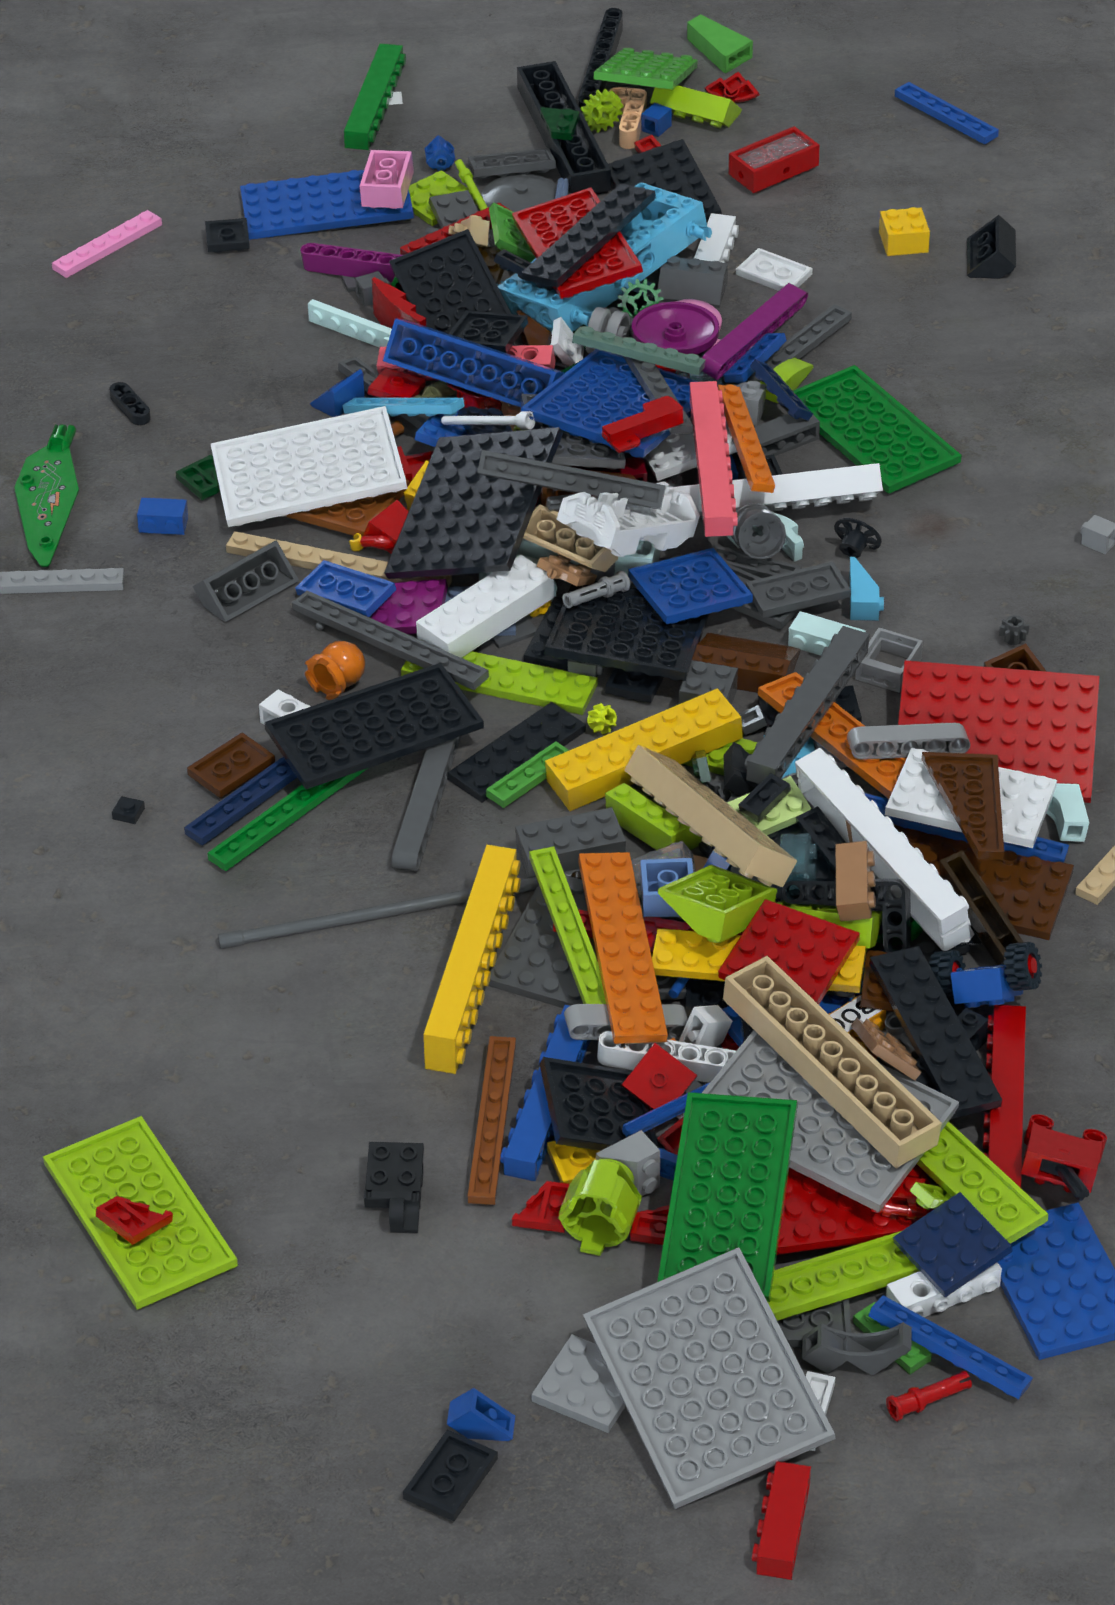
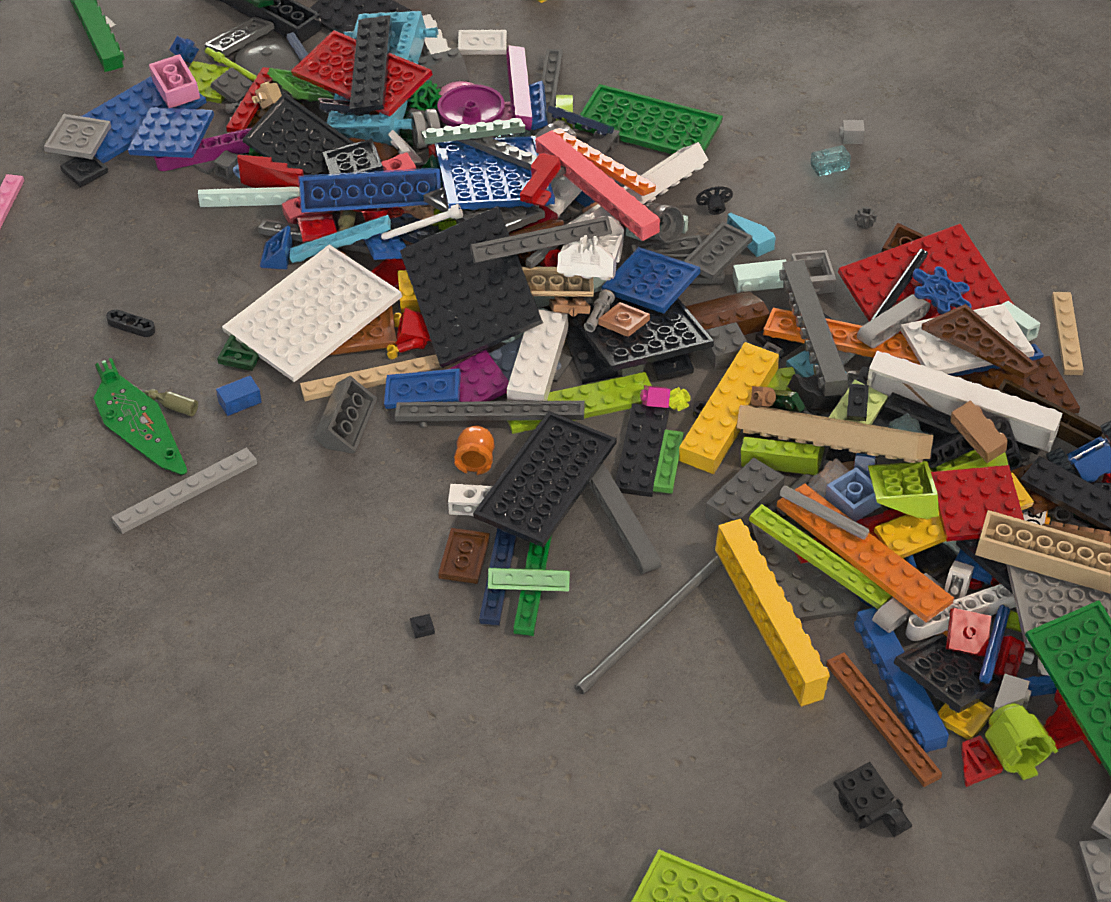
camera: 35 degrees left, 5 degrees up
(97, 495) = (174, 401): none -> olive wheel
(244, 198) = (77, 136): none -> light grey plate
(262, 812) = (528, 579): none -> plate
(337, 230) = (171, 132): none -> blue plate
(576, 703) = (655, 396): none -> dark pink brick
(610, 885) = (824, 512): none -> light grey axle
(612, 609) = (624, 319): none -> nougat plate
(679, 750) = (762, 396): none -> medium nougat plate
(970, 704) = (902, 283): none -> black axle
(1006, 724) = (940, 289): none -> blue plate
(1039, 553) = (830, 160): none -> clear light blue brick

